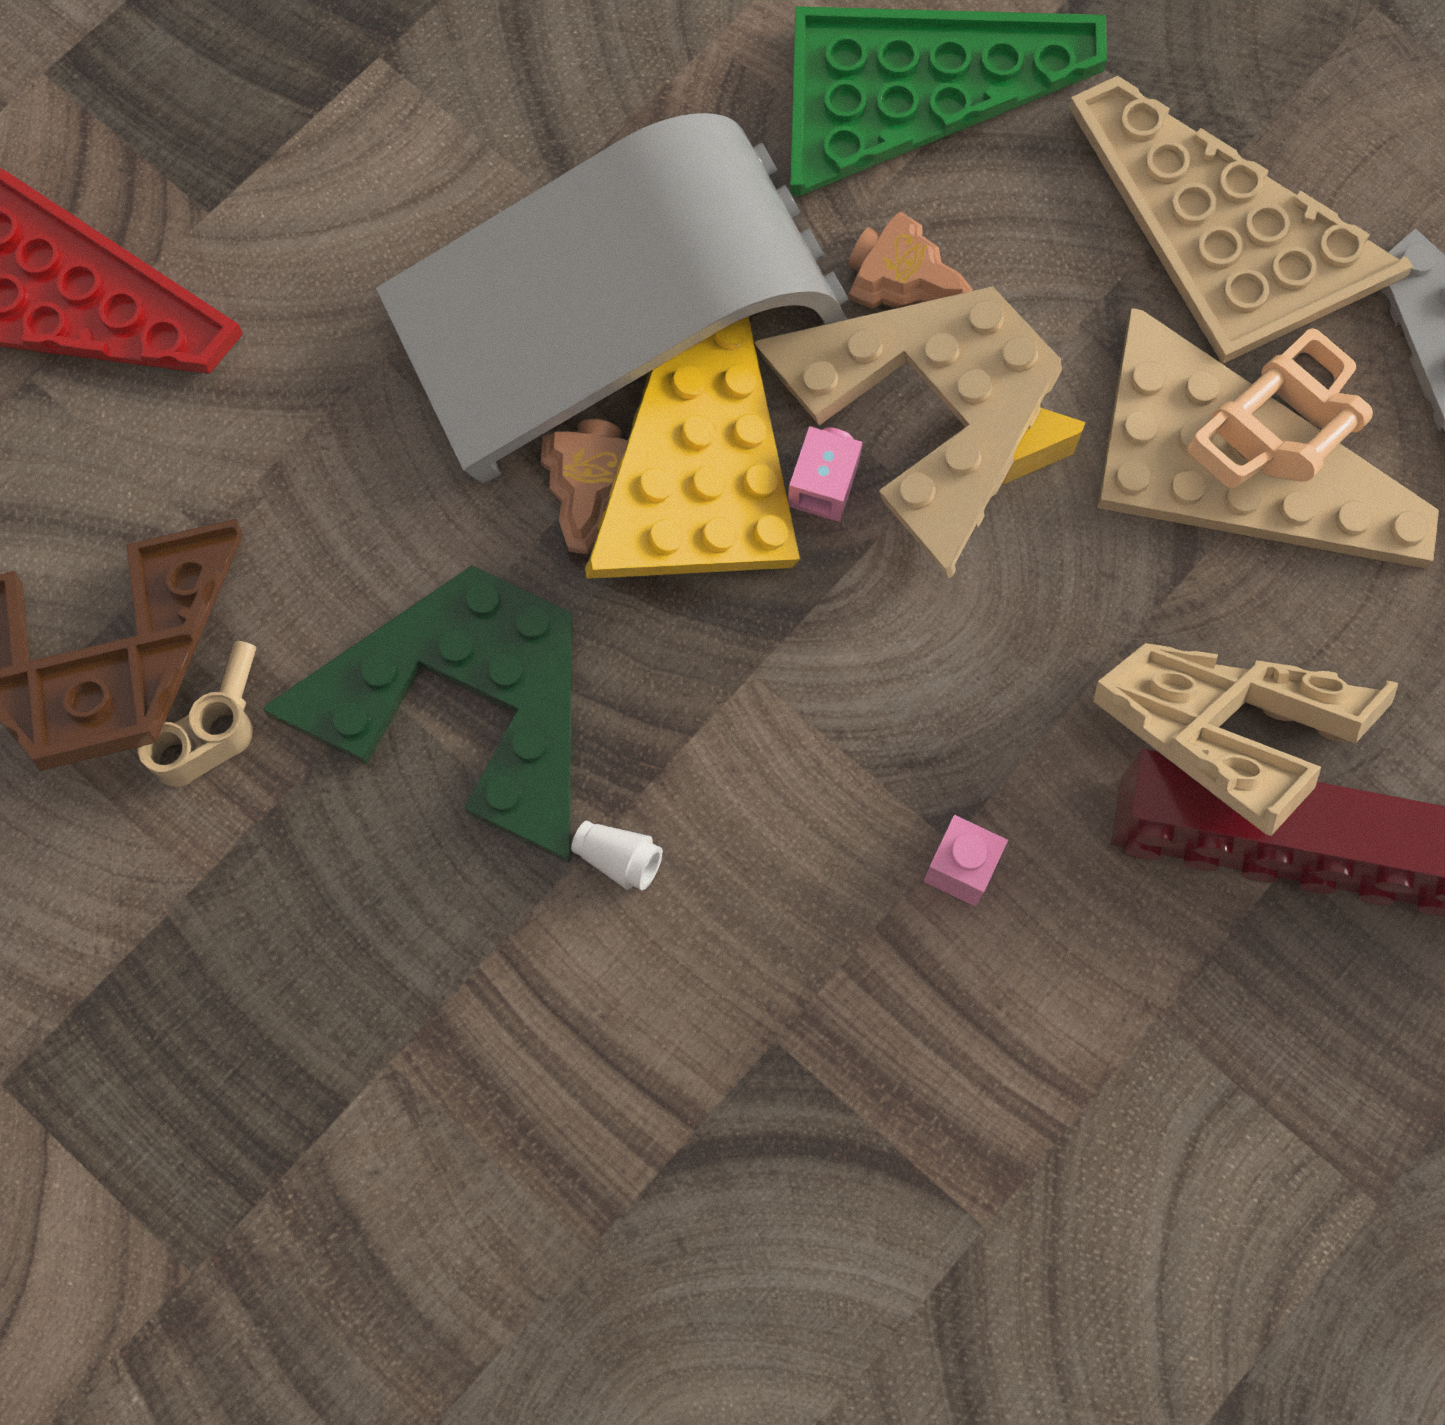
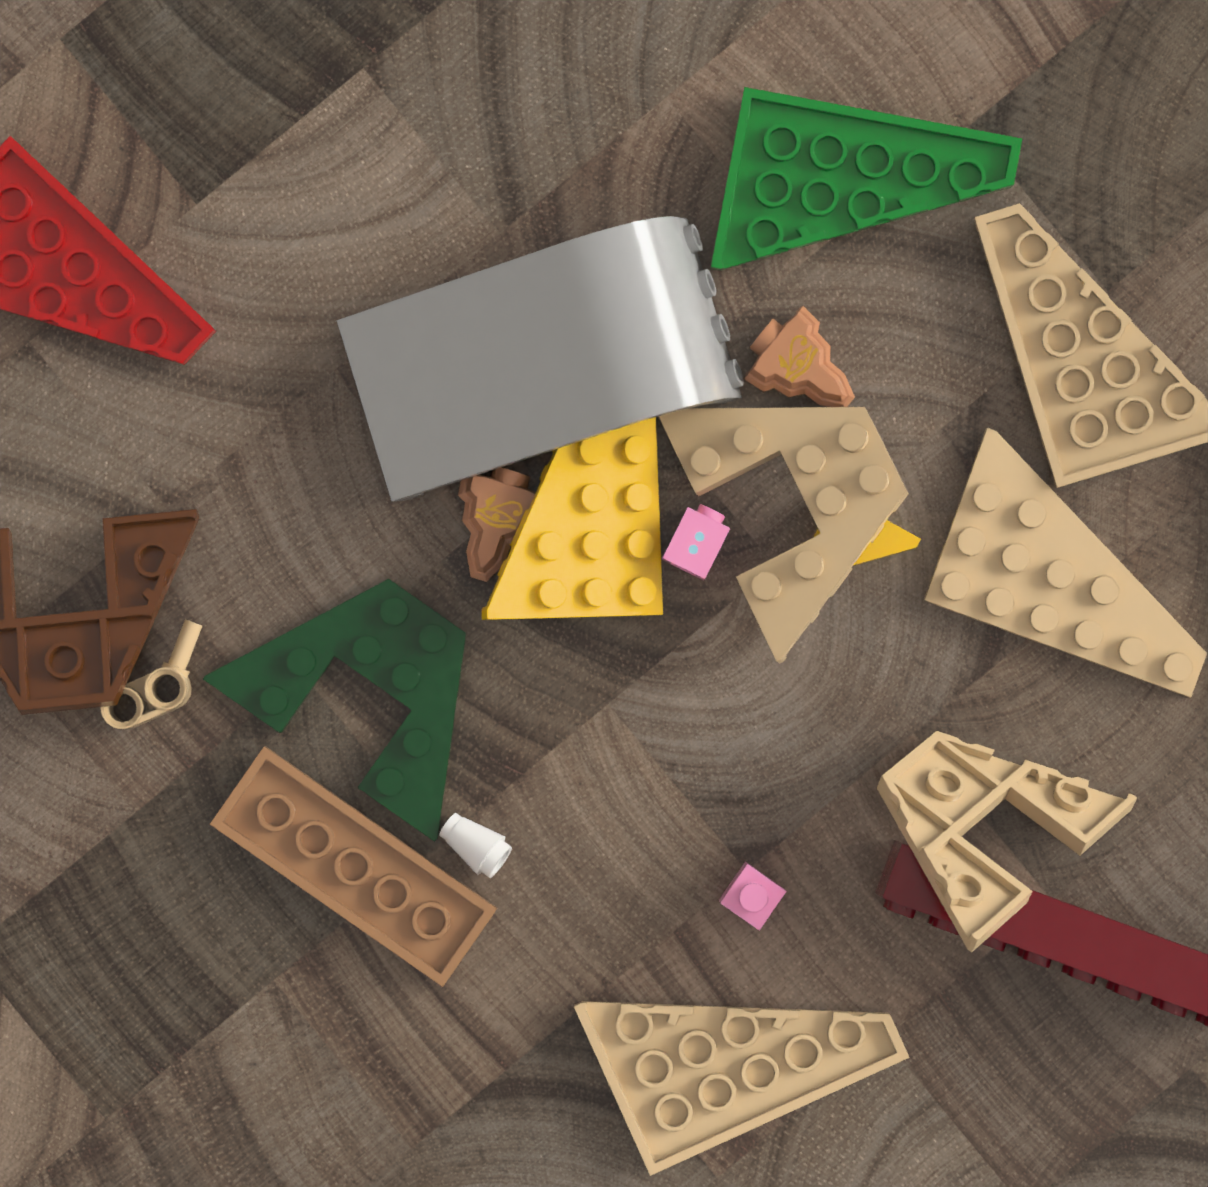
camera: 10 degrees right, 15 degrees up
(472, 902) = (353, 866): none -> medium nougat plate
(960, 1088) = (719, 1071): none -> tan wing
(1322, 407) = (1100, 511): light nougat bar -> none

